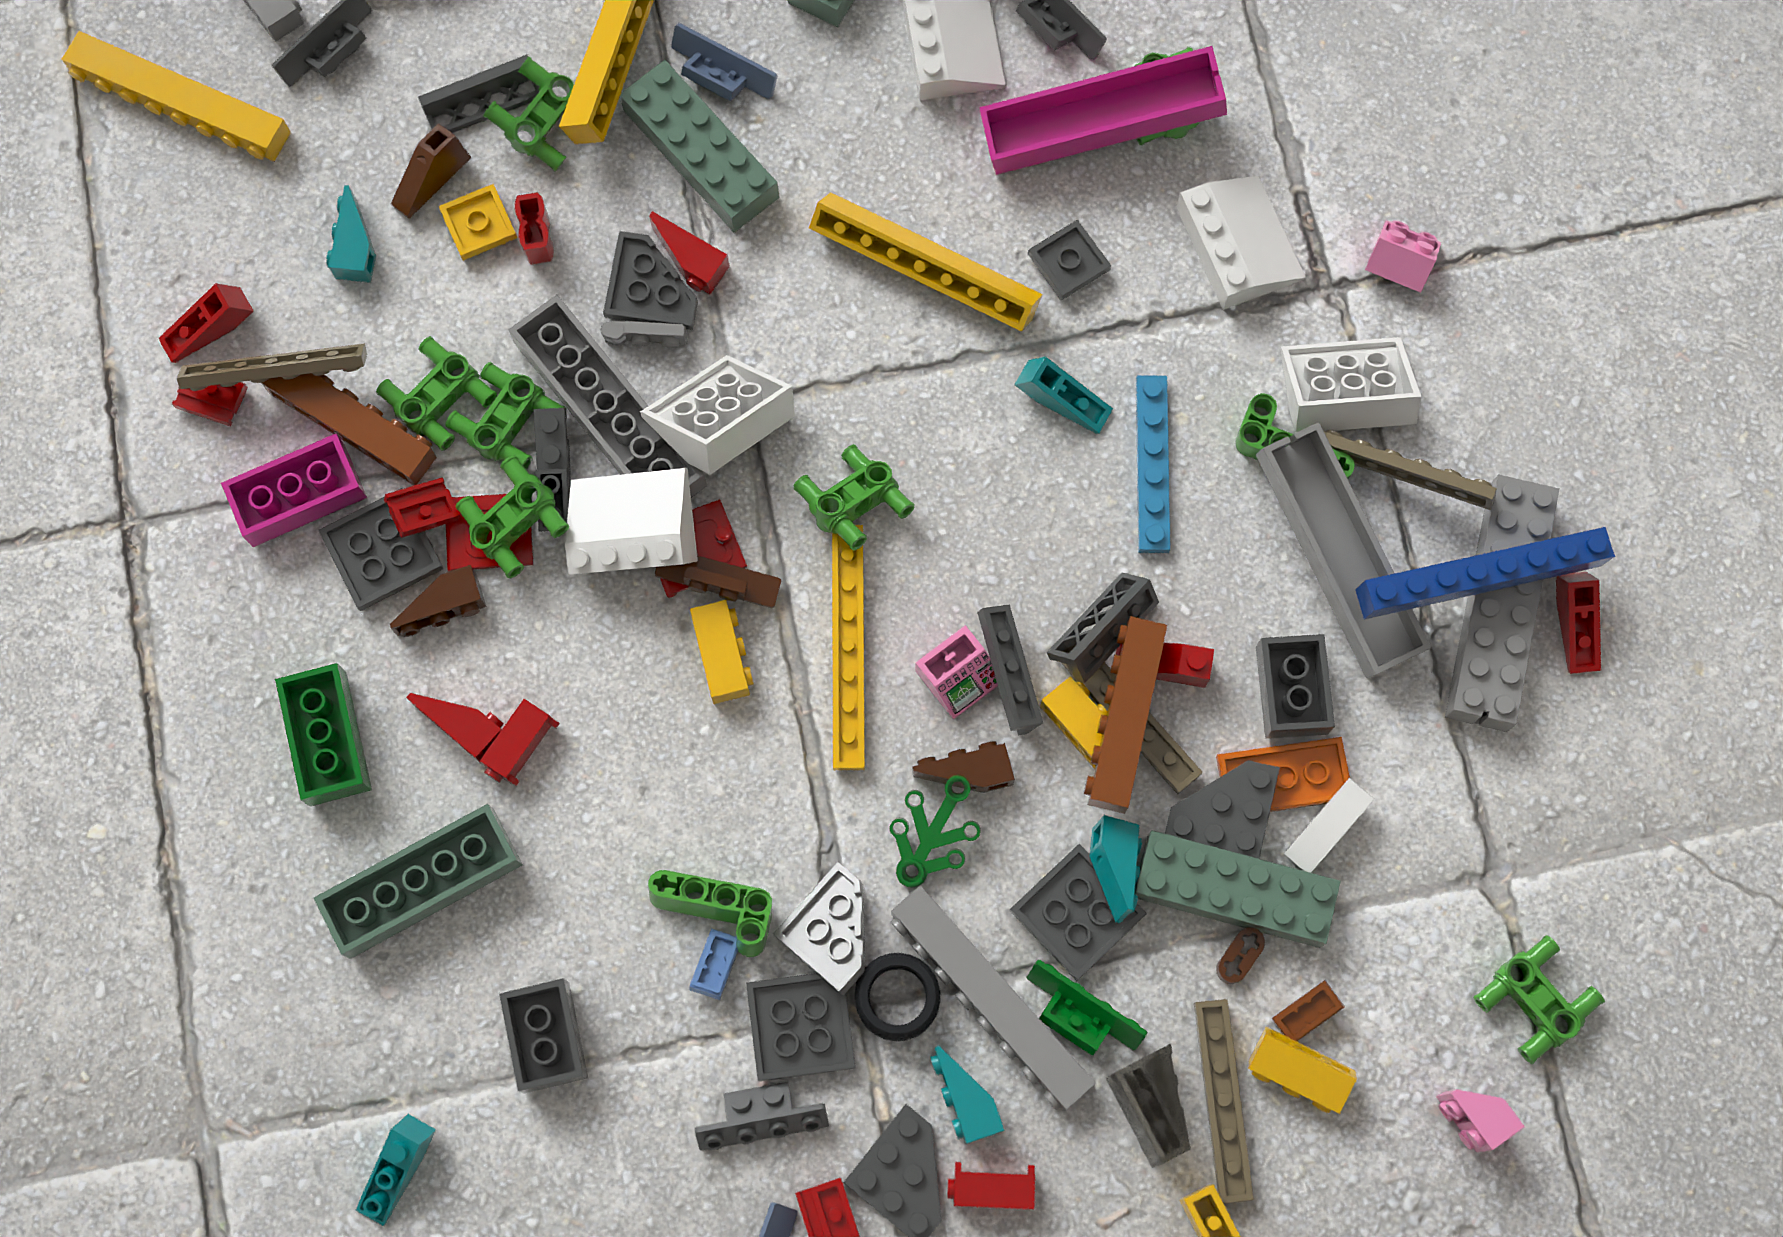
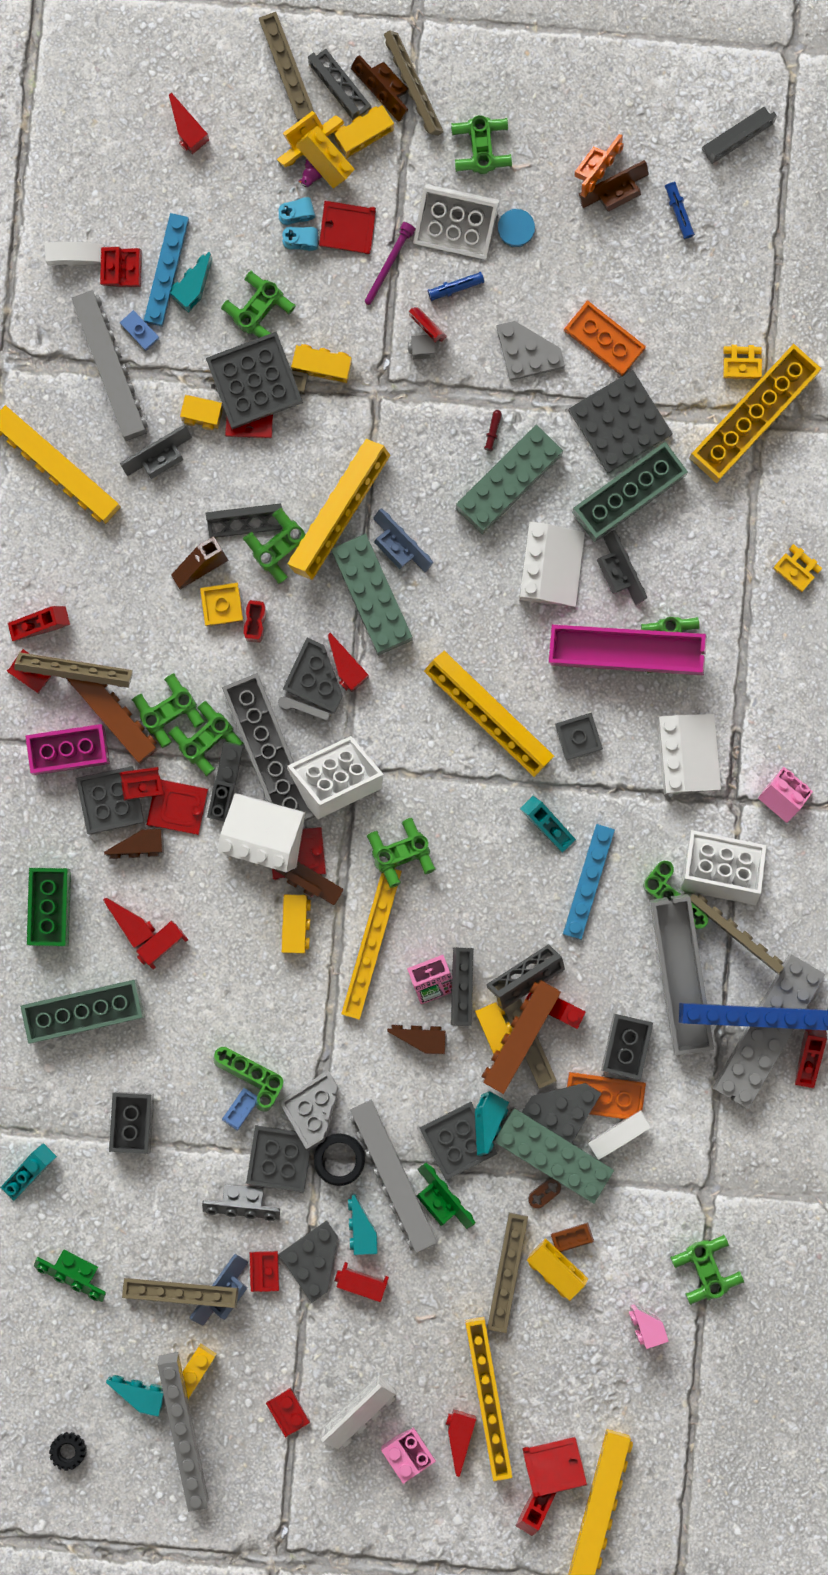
camera: 15 degrees right, 10 degrees up
(352, 250) = (141, 598): teal slope -> none
(512, 516) = (193, 807): bright green piece -> none
(931, 836) = (386, 1072): green plant -> none
(1152, 1105) = (465, 1264): clear smoke wedge -> none

